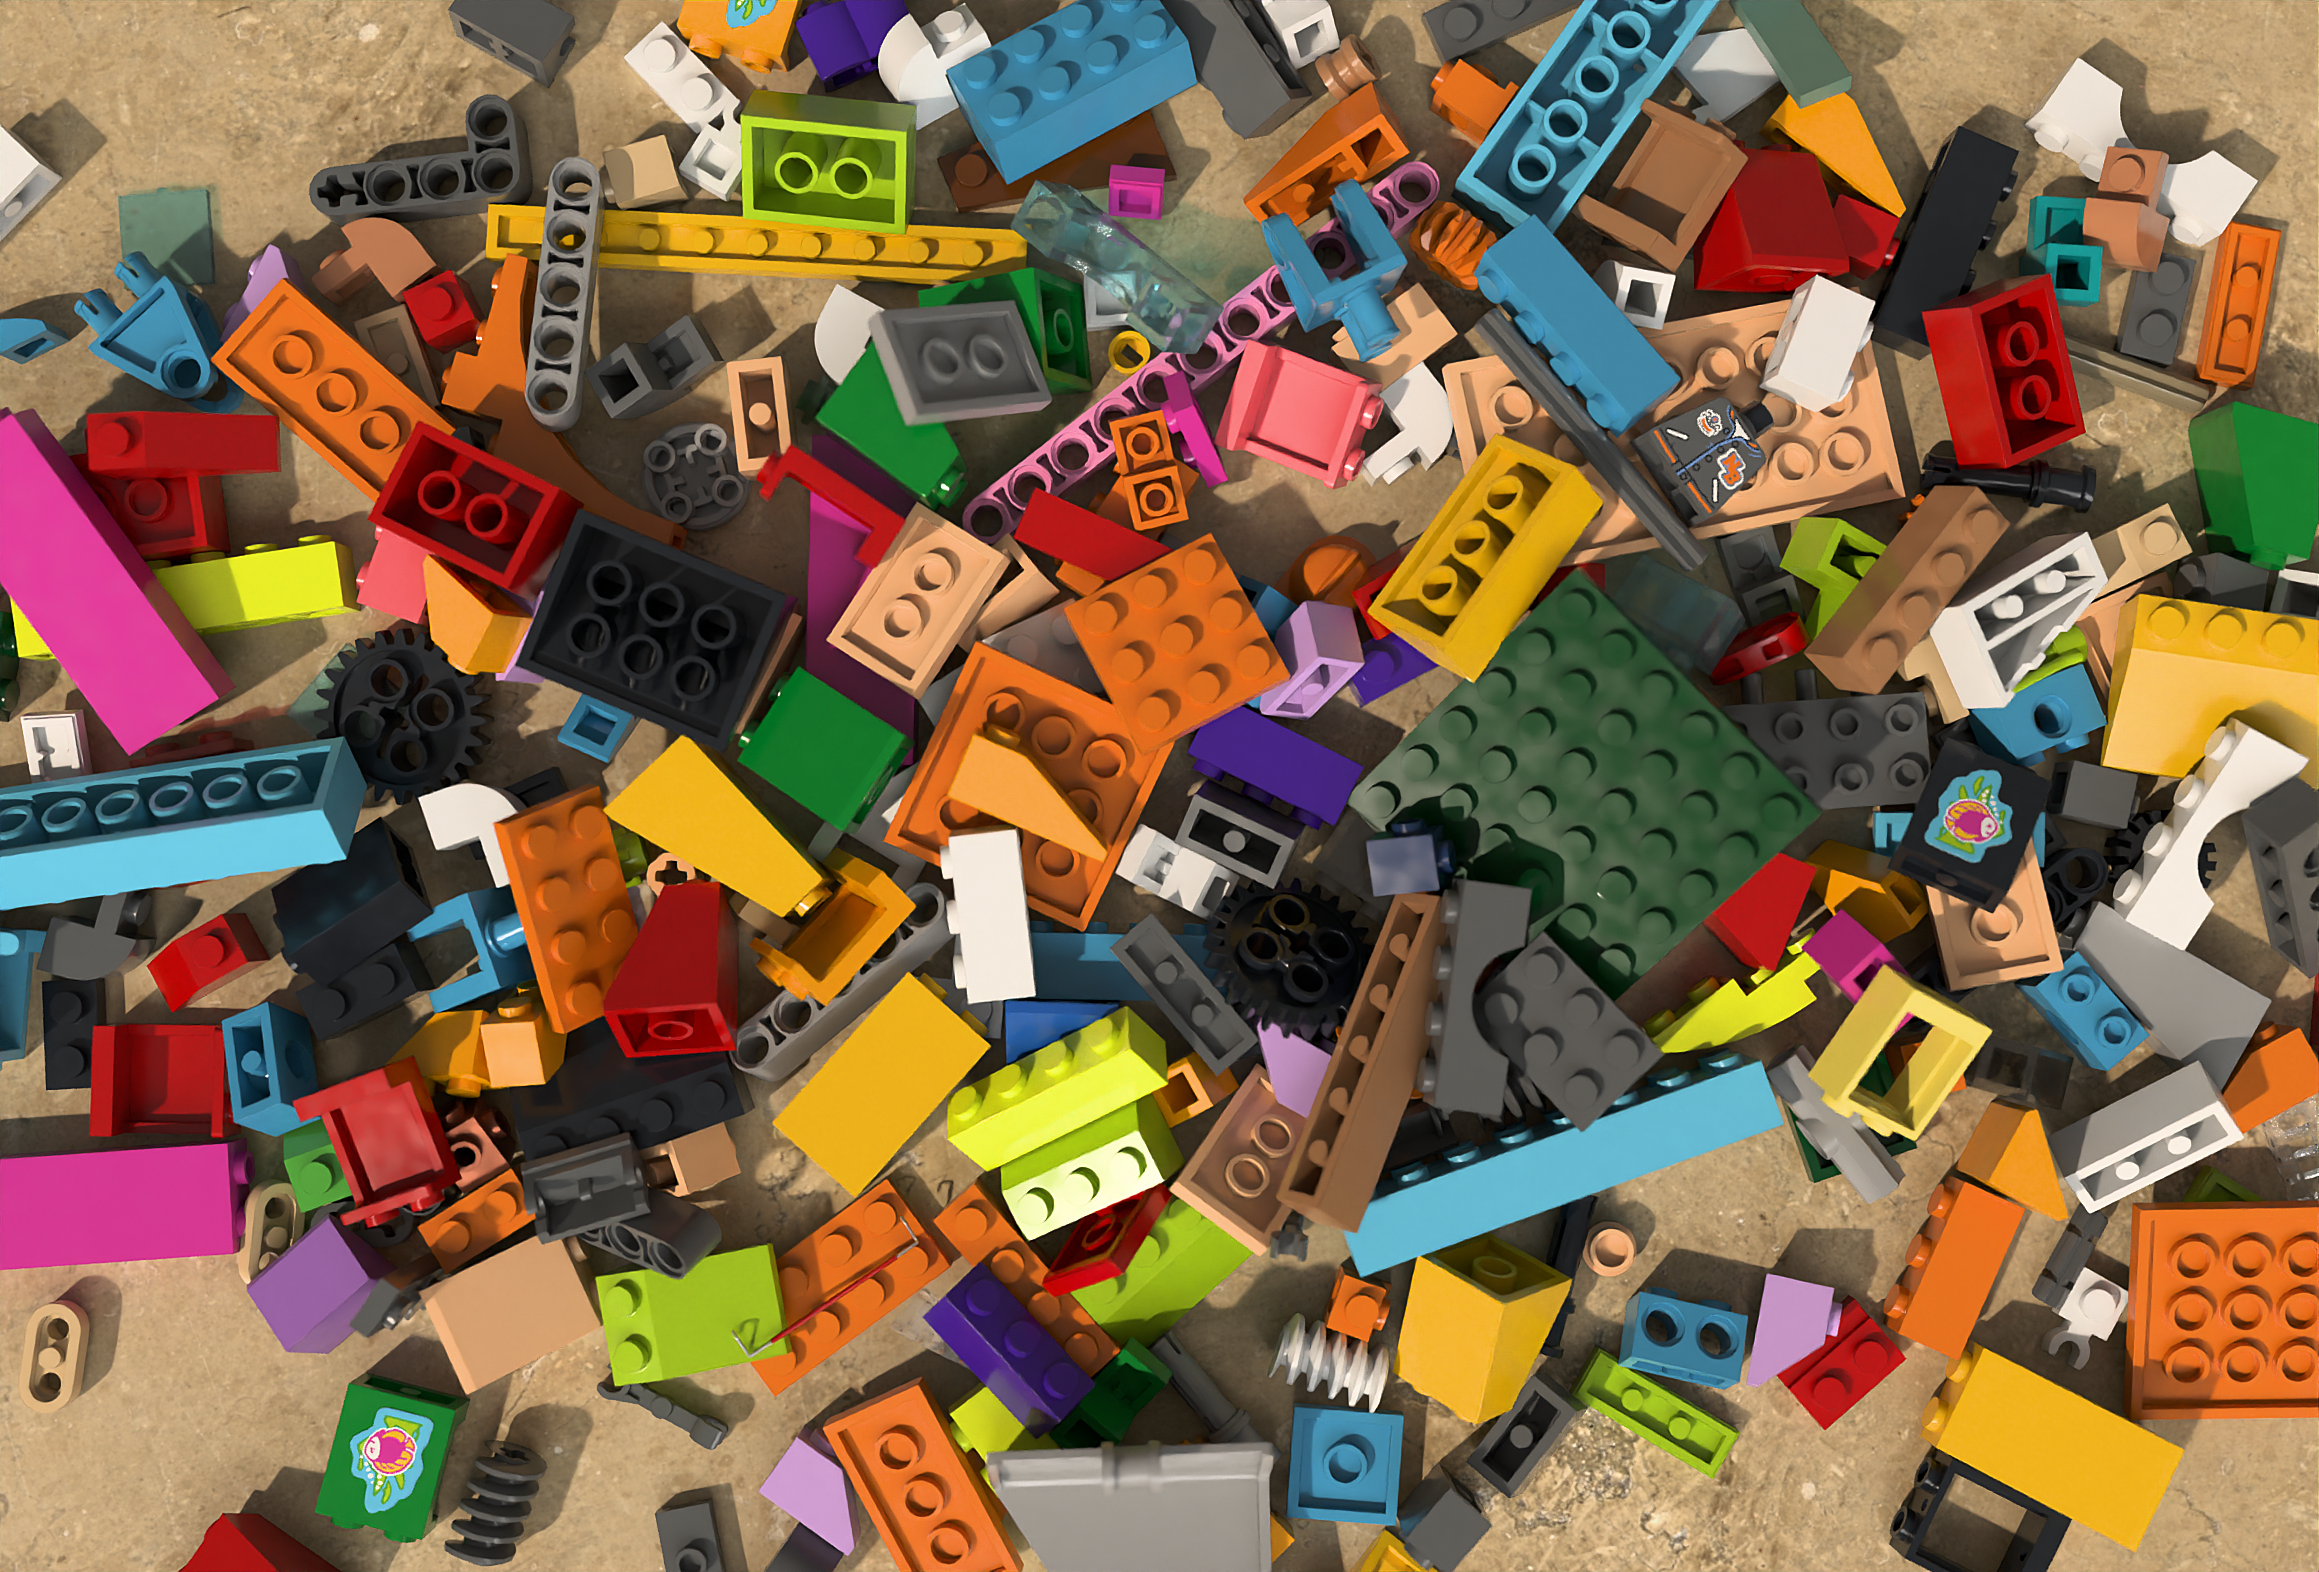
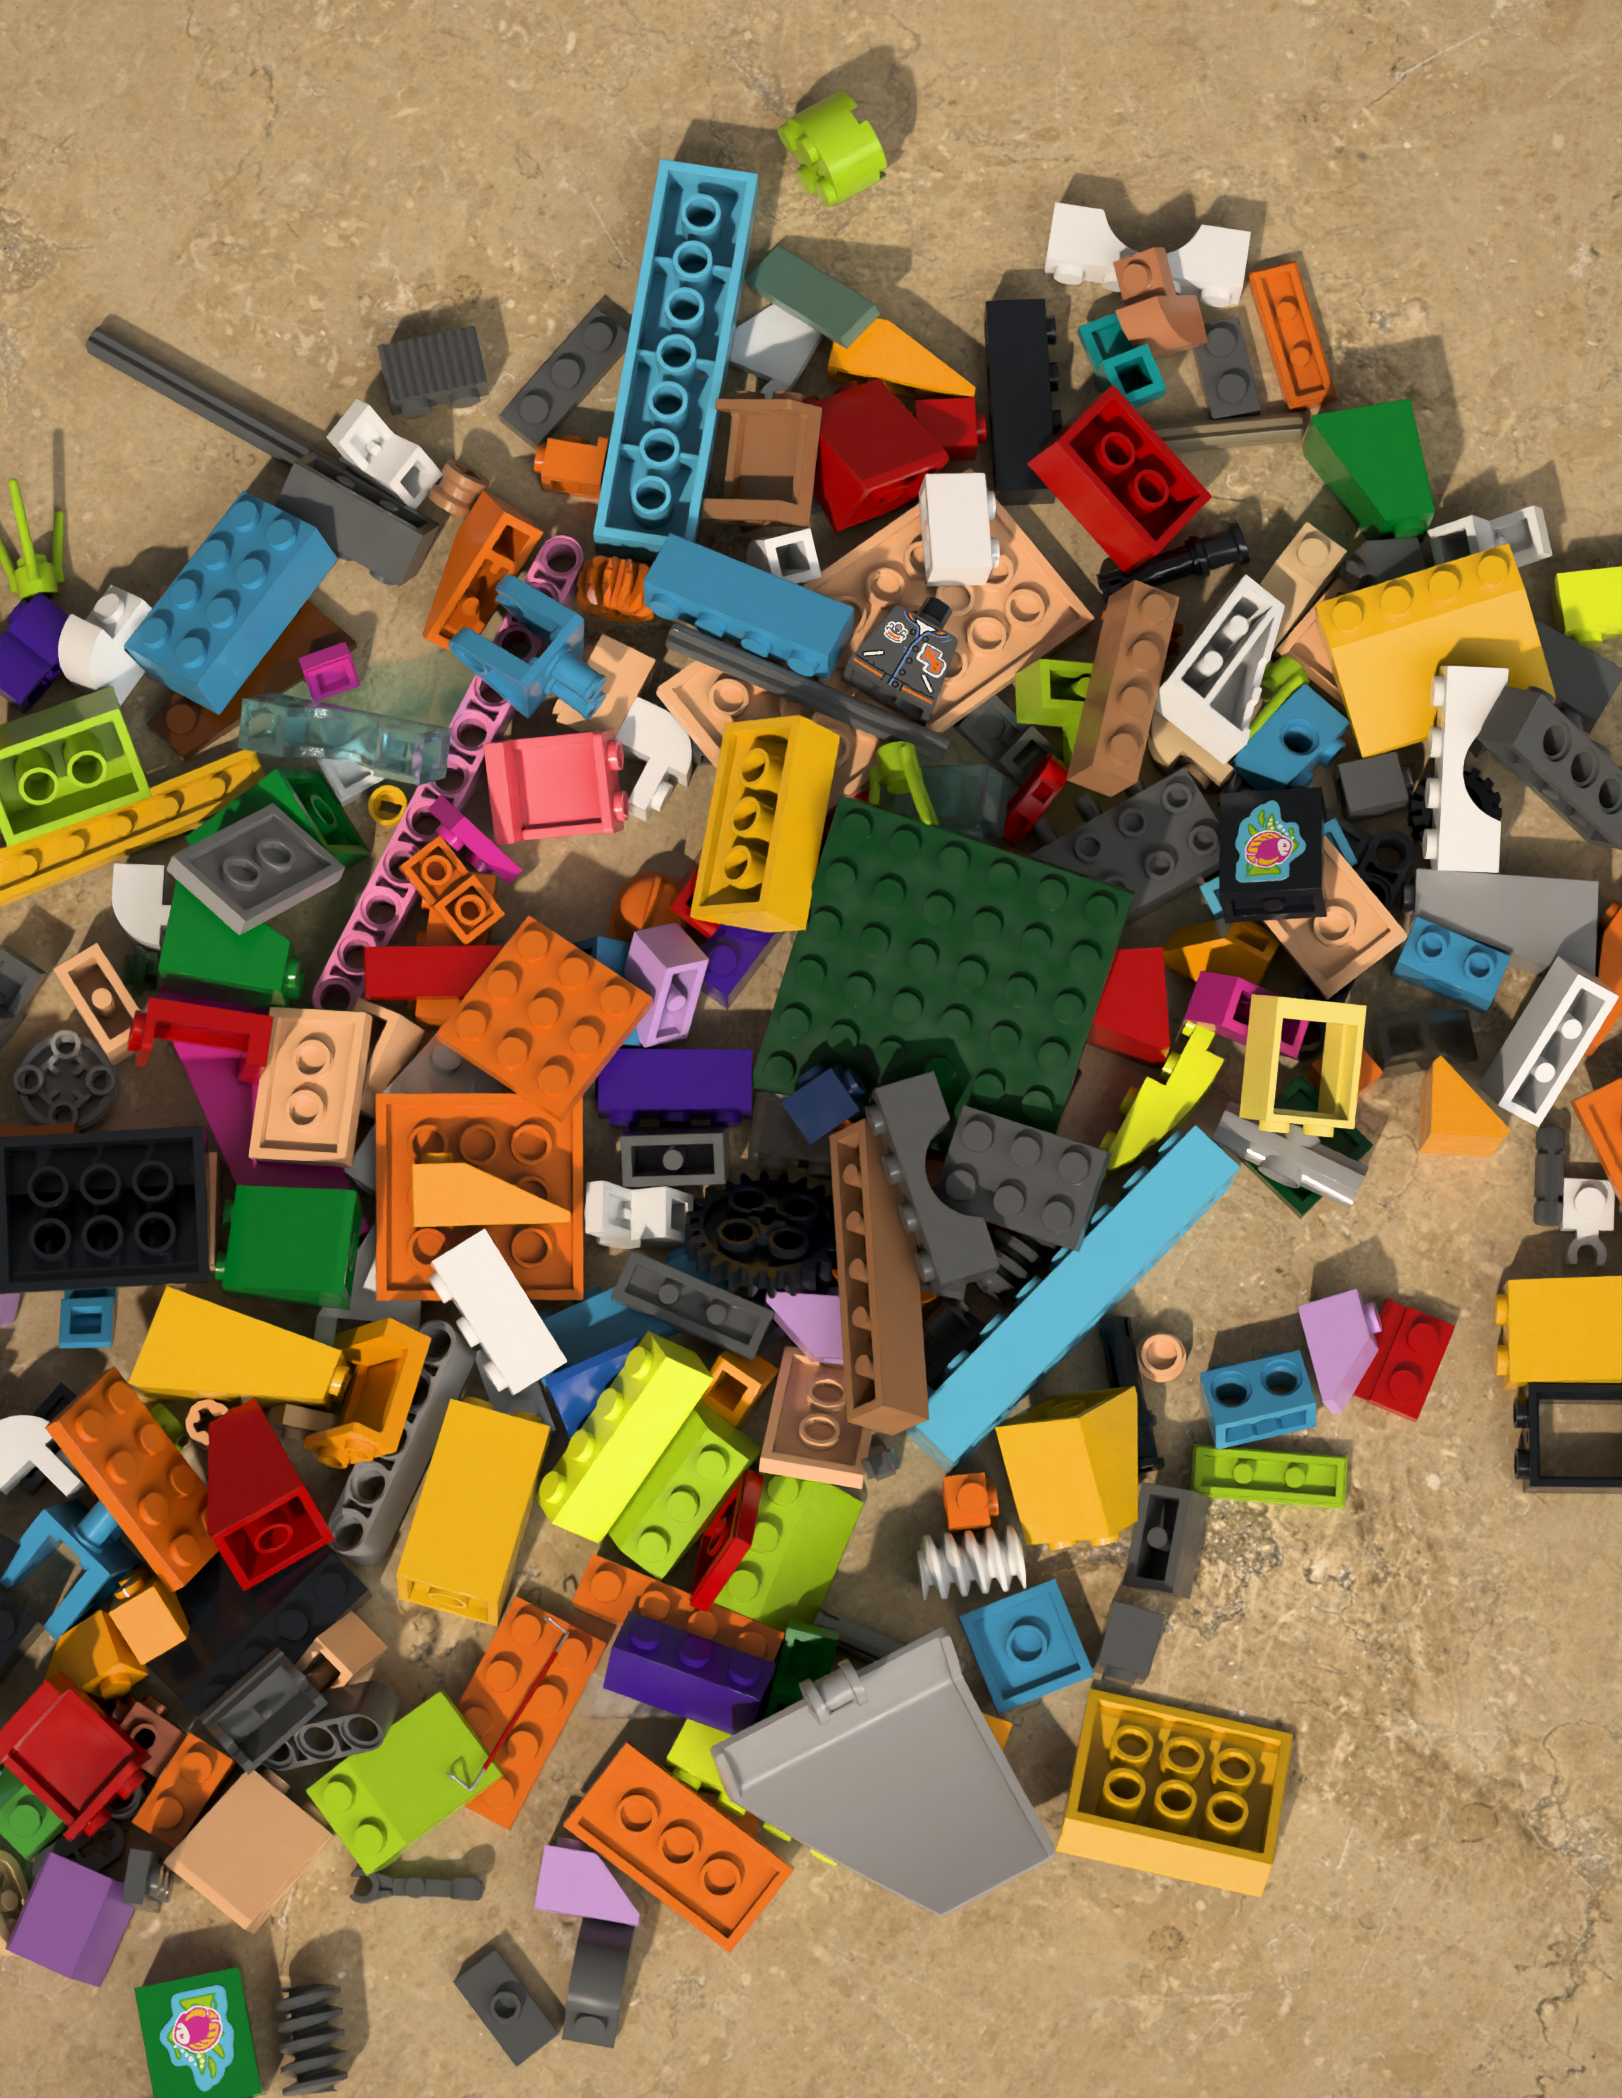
camera: 30 degrees left, 10 degrees down
(1643, 567) = (901, 774): none -> lime plant
(1951, 1266) = (1451, 1230): orange brick -> none

